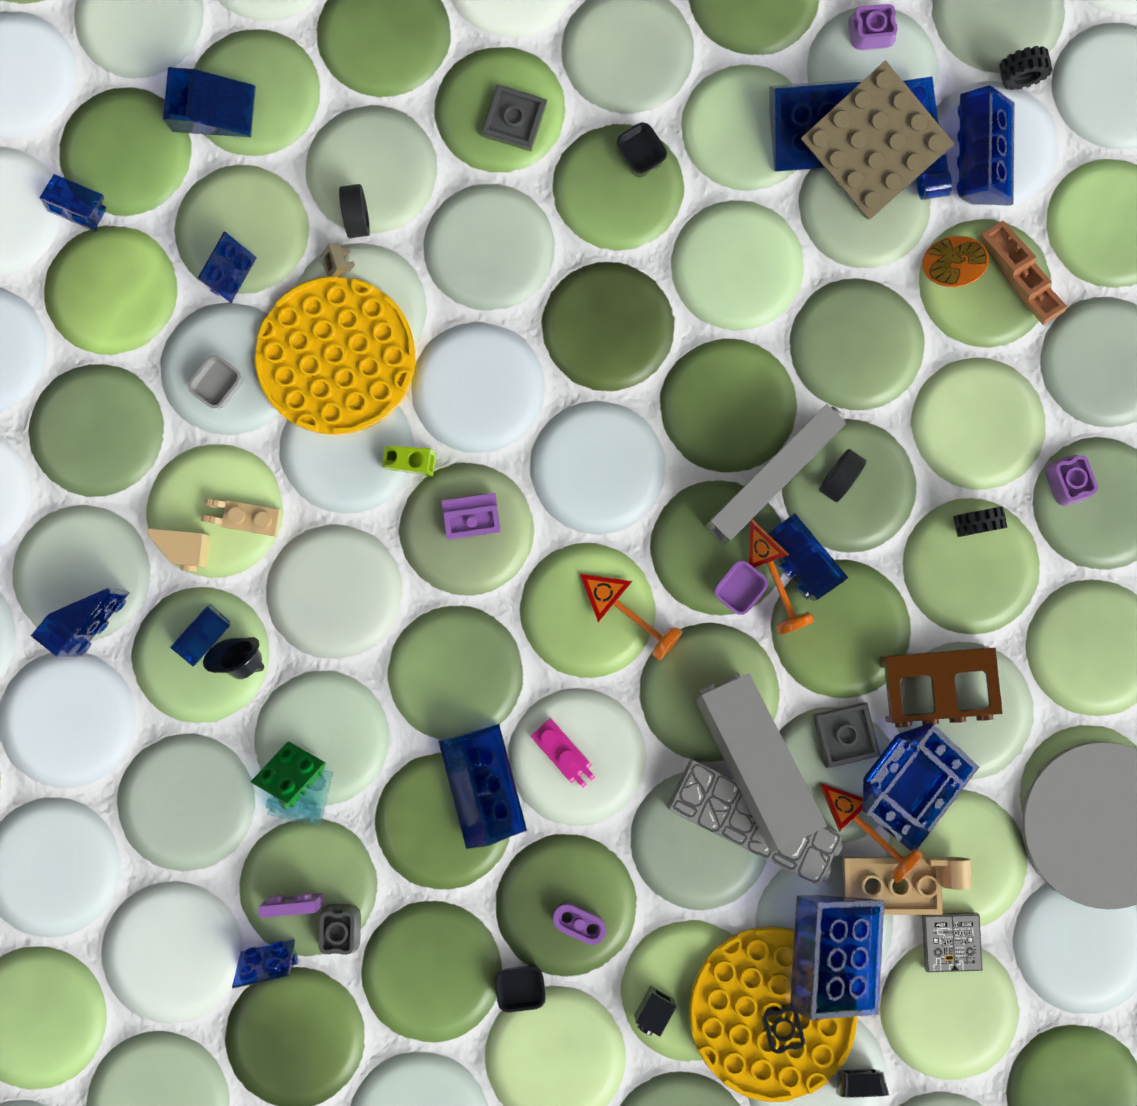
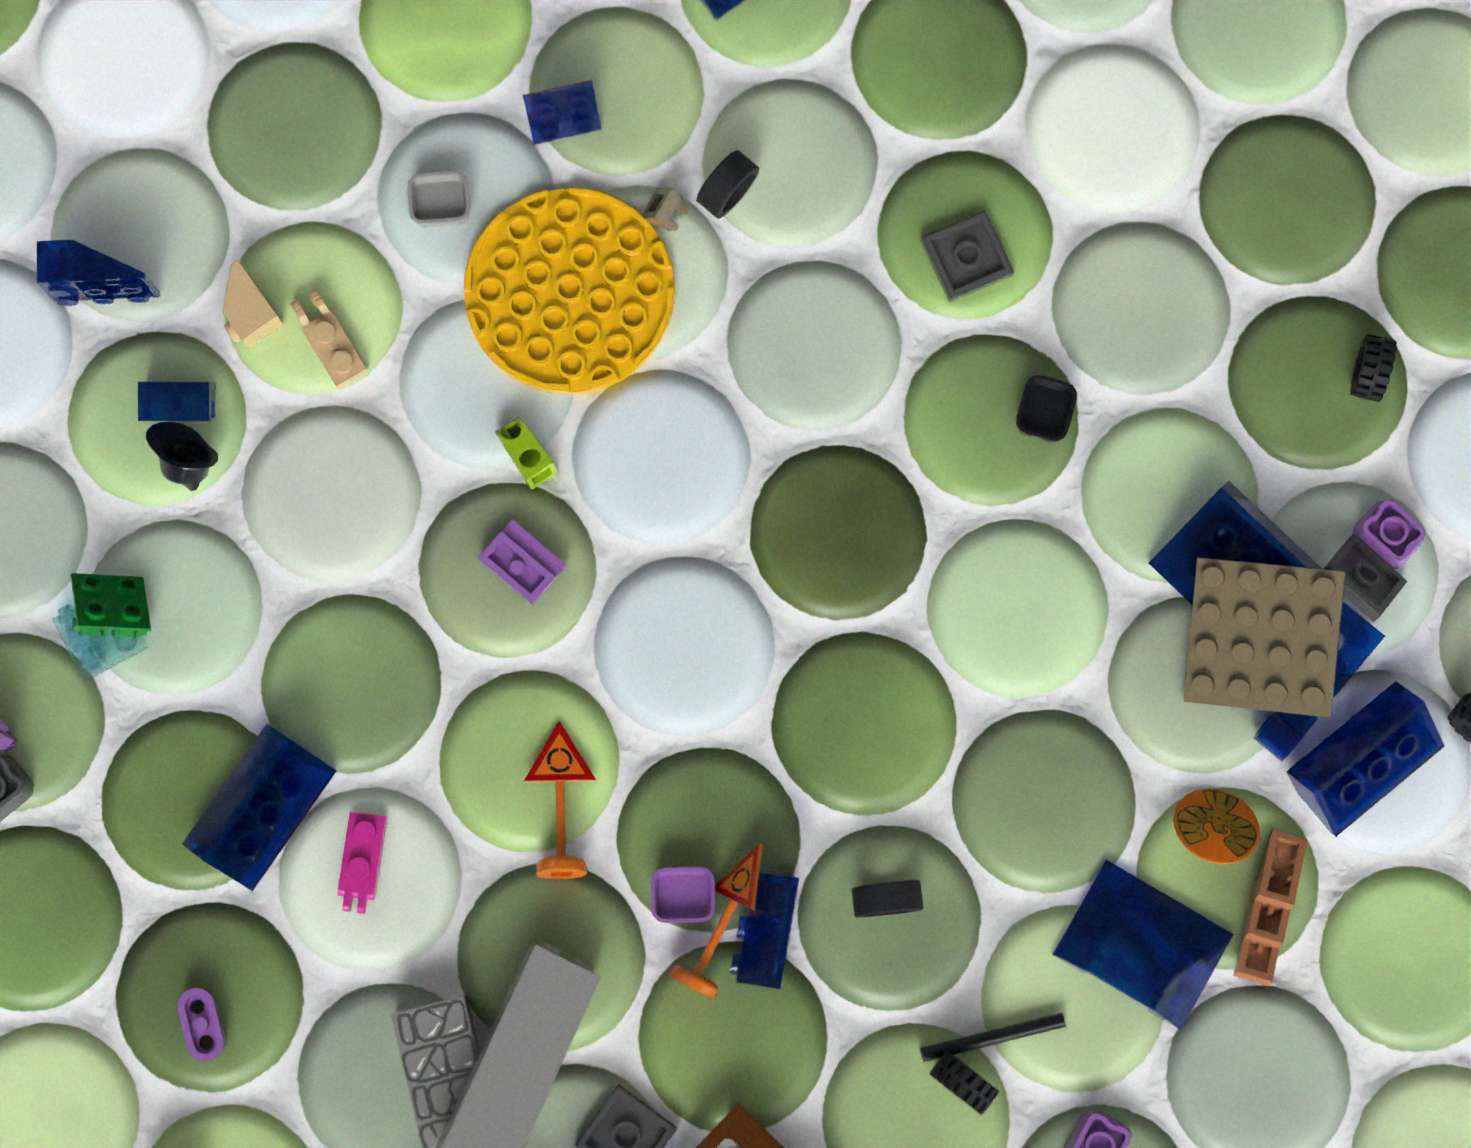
camera: 50 degrees right, 5 degrees down
(520, 989) = (85, 1019): black piece -> none
(776, 474) = (828, 828): light grey brick -> none
(897, 54) = (1368, 579): none -> dark grey tile
(964, 485) = (993, 1037): none -> black bar
(982, 359) = (1143, 944): none -> clear blue slope

